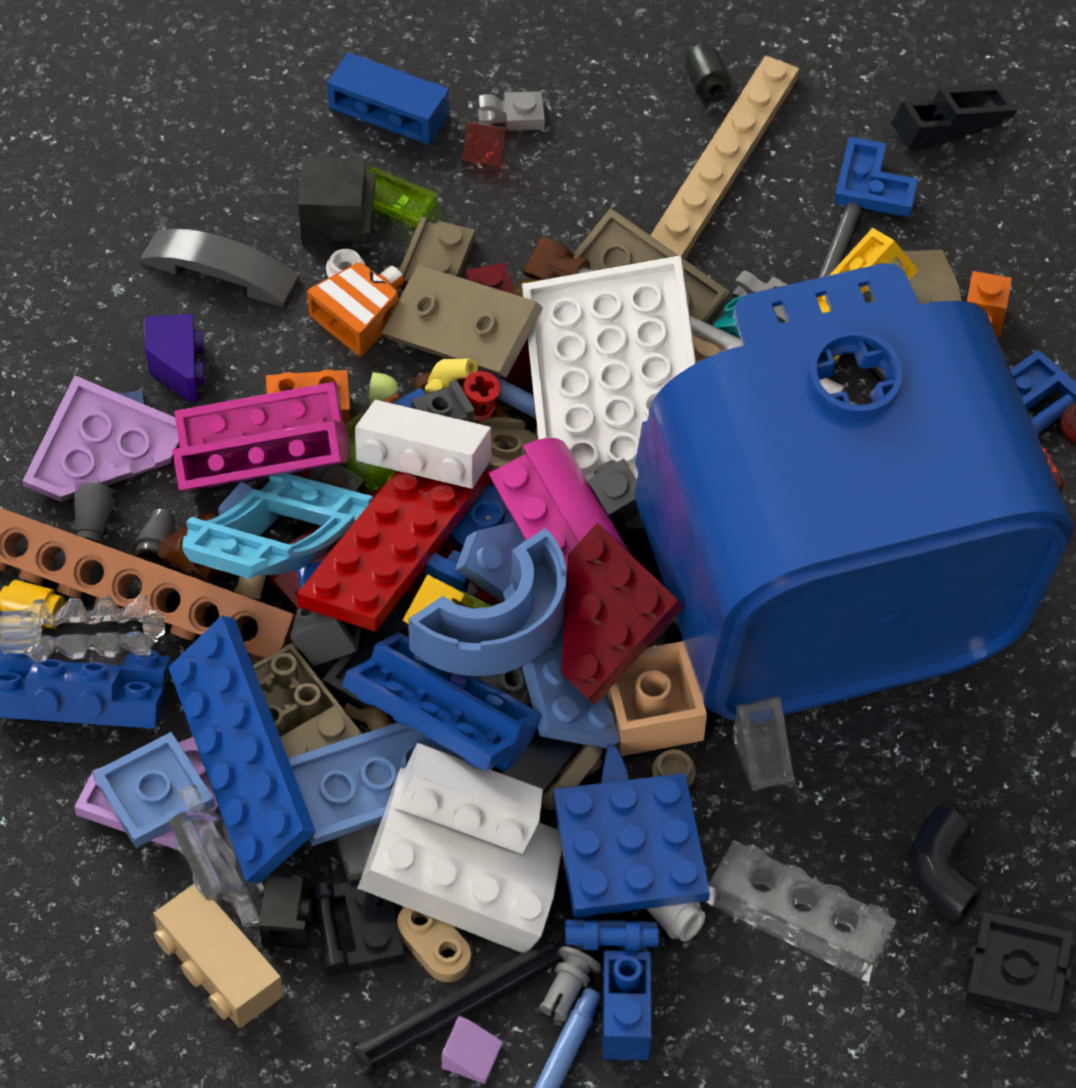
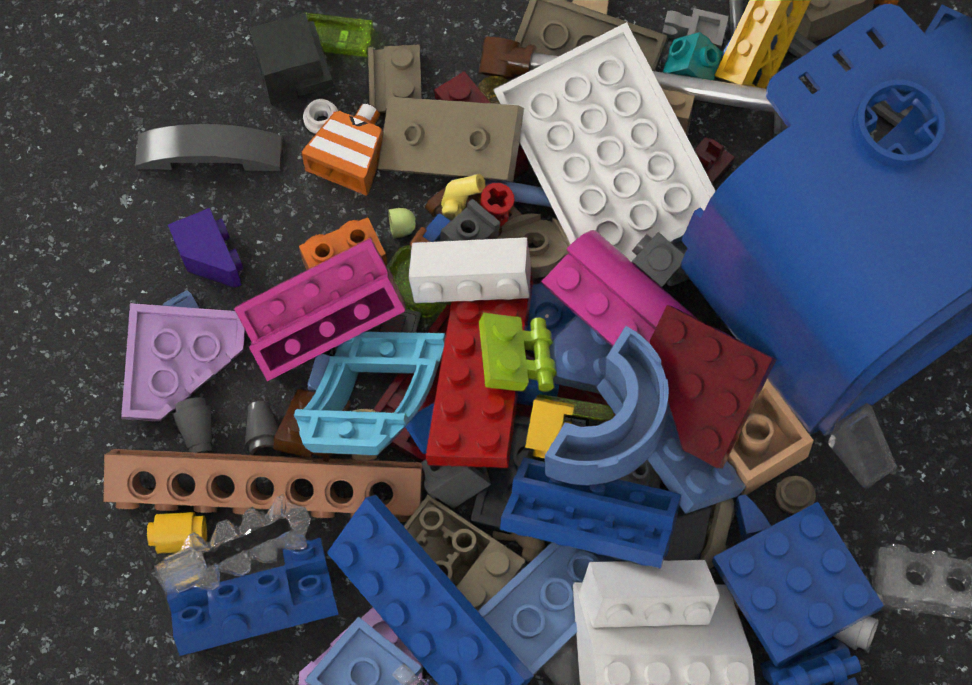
camera: 15 degrees left, 10 degrees up
(418, 526) = (504, 353): none -> lime plate

